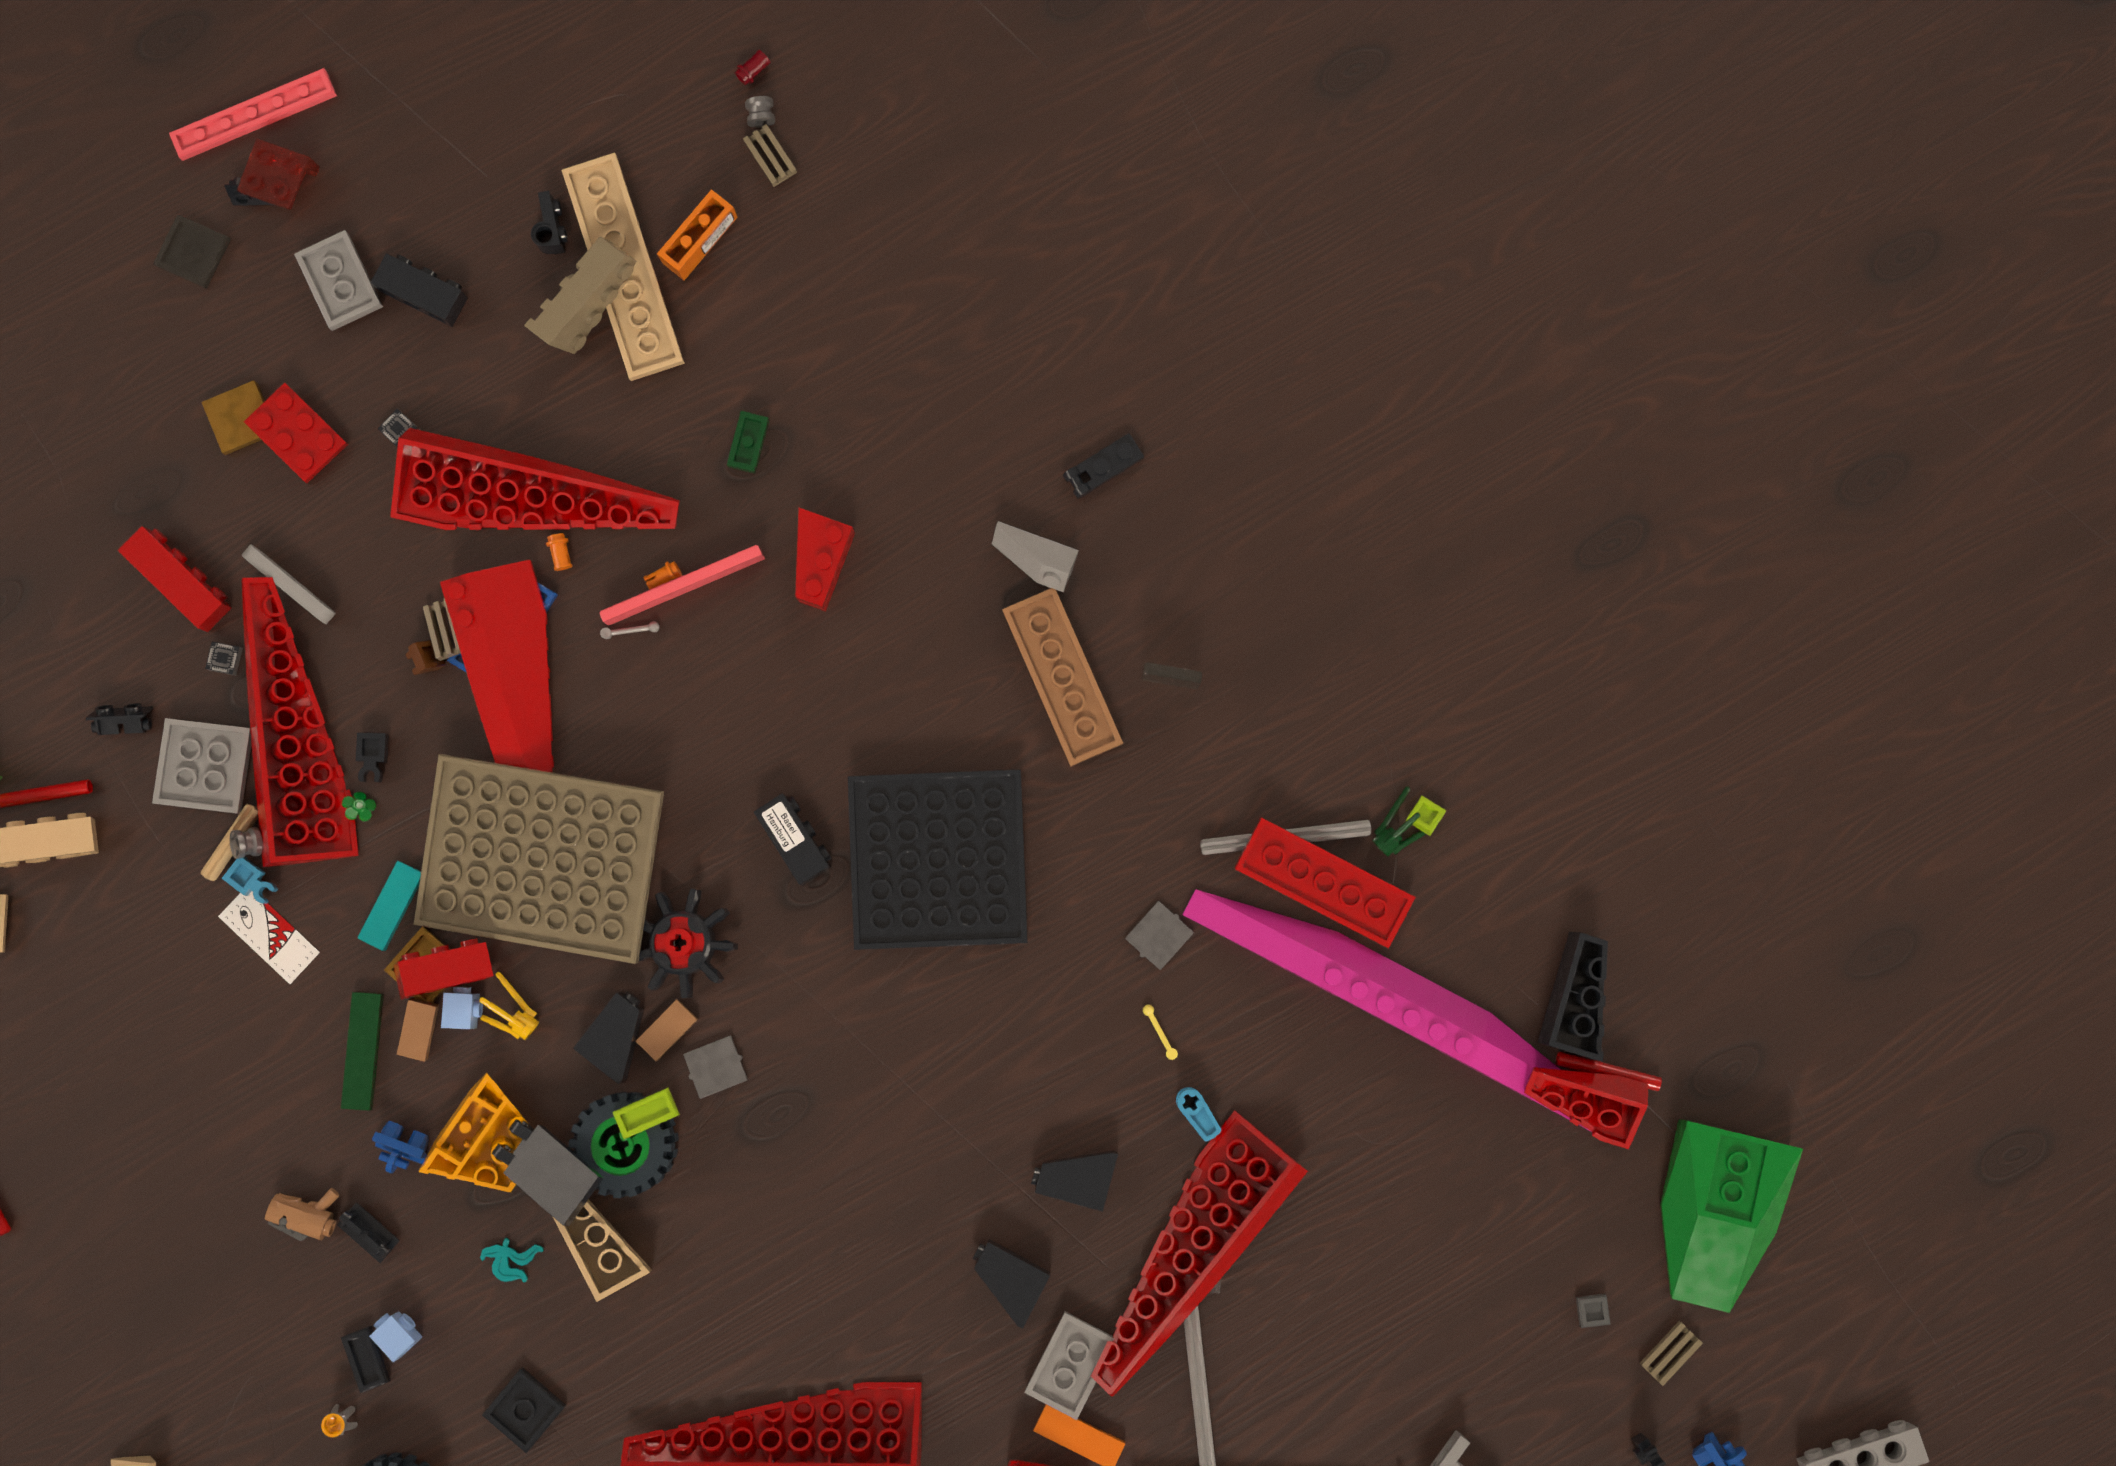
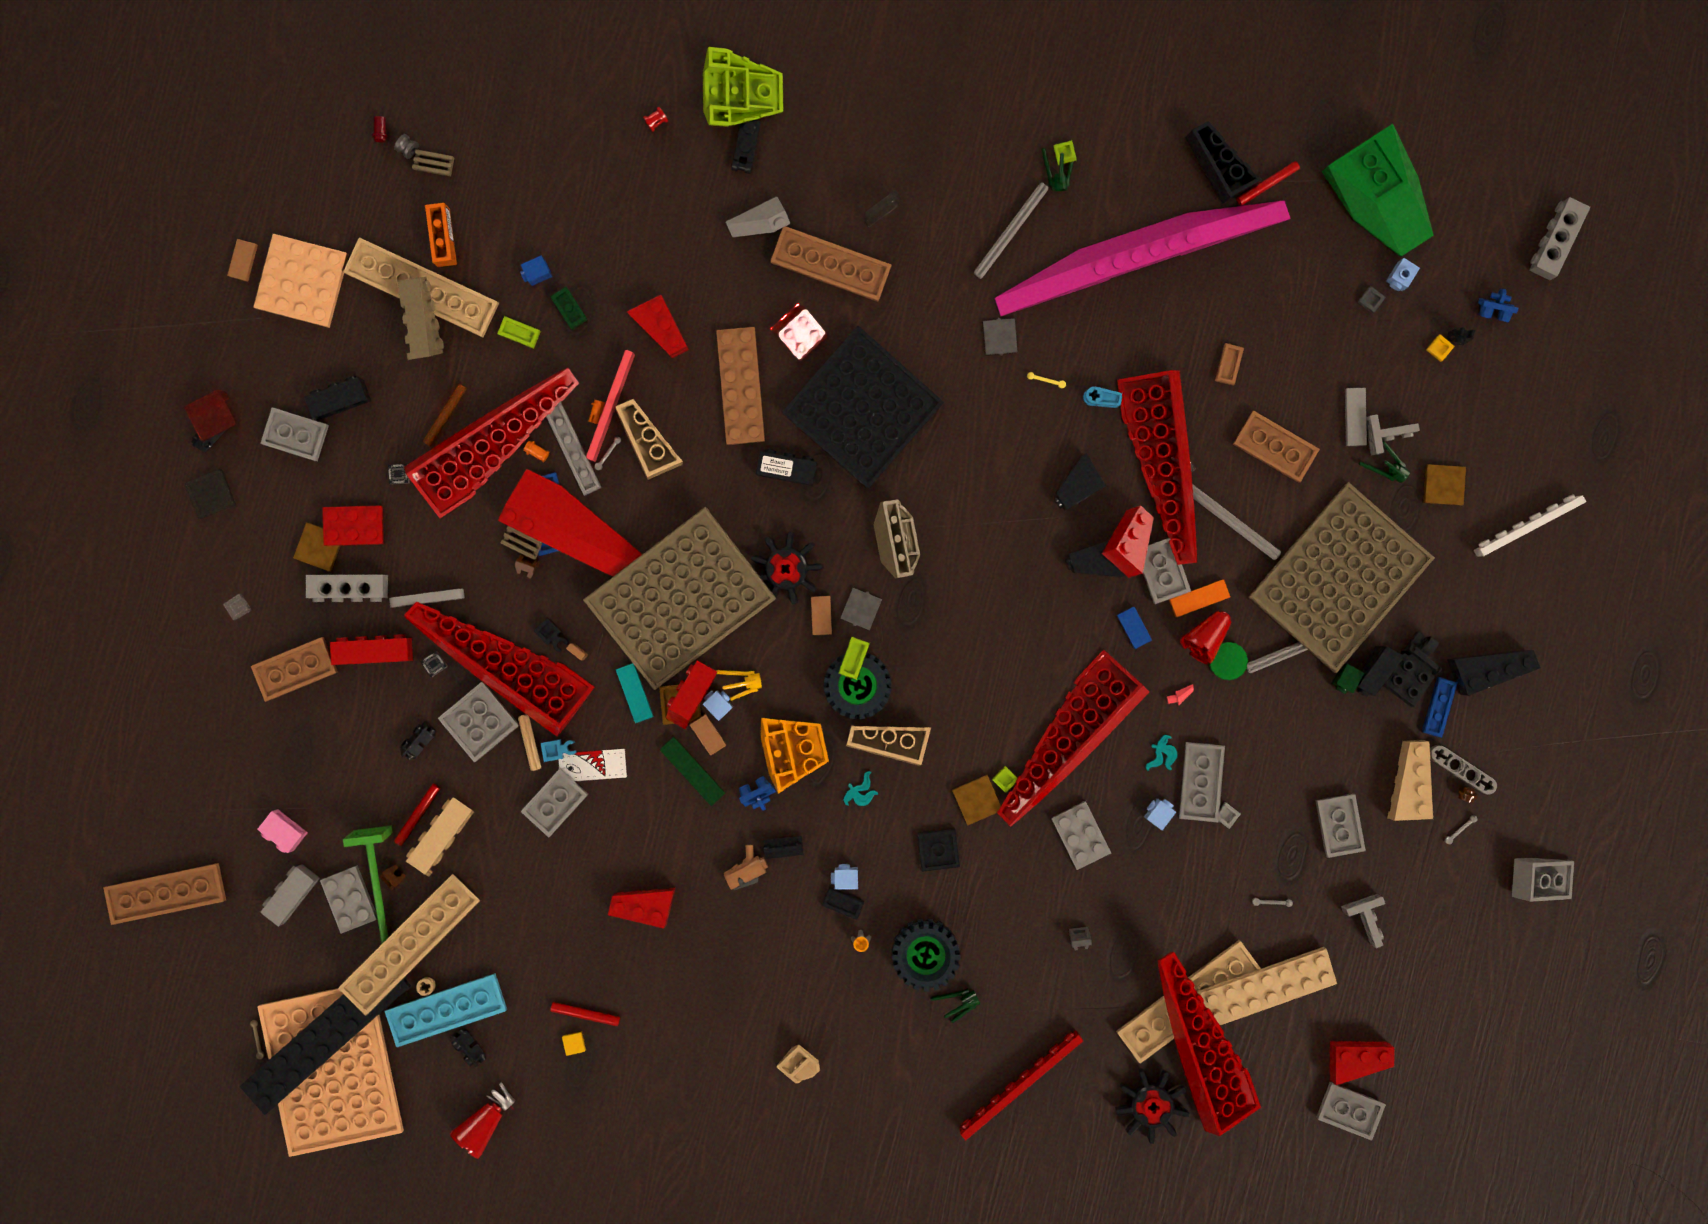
camera: 45 degrees left, 5 degrees up
(78, 514) = (294, 669): none -> medium nougat plate
(93, 392) = (237, 607): none -> clear tile
(157, 1139) = (645, 907): none -> red wedge
(187, 932) = (554, 802): none -> light grey plate
(246, 843) = (537, 734): flat silver wheel -> none
(252, 114) = (167, 399): coral tile -> none
(255, 516) = (316, 587): none -> light grey brick
(358, 806) = (570, 664): green plant -> none
(378, 800) = (577, 651): none -> medium nougat tile
(477, 55) = (242, 260): none -> medium nougat tile
(508, 417) = (444, 415): none -> clear orange piece
(512, 135) = (301, 280): none -> light nougat plate
(548, 1171) = (838, 730): tile -> none
(550, 210) = (366, 304): black plate -> none
(598, 590) = (573, 450): none -> light grey tile
(613, 1036) = (800, 643): black slope -> none
(620, 1400) = (977, 799): none -> pearl gold tile
(672, 413) = (519, 332): none -> lime tile
(673, 1409) = (1005, 779): none -> lime tile
(678, 663) = (648, 444): none -> tan wedge
(754, 370) = (535, 270): none -> blue brick
(826, 1035) = (896, 538): none -> dark tan wedge
(837, 704) = (740, 386): none -> medium nougat plate
(955, 712) = (799, 331): none -> clear red bracket
(977, 1394) = (1134, 627): none -> blue tile
(1039, 343) = (655, 119): none -> red bush
(1065, 1298) = (1130, 541): none -> red wedge
(1155, 402) = (739, 89): none -> lime wedge
(1324, 882) = (1050, 231): red plate -> none
(1328, 1361) = (1276, 446): none -> medium nougat plate
(1369, 1219) = (1229, 364): none -> medium nougat tile
(1446, 1419) = (1355, 417): none -> light grey tile
(1600, 1102) = (1280, 200): red wedge -> none
(1613, 1441) = (1440, 348): none -> yellow tile
(1651, 1320) = (1402, 275): none -> light blue brick
(1679, 1361) = (1433, 282): dark tan tile -> none

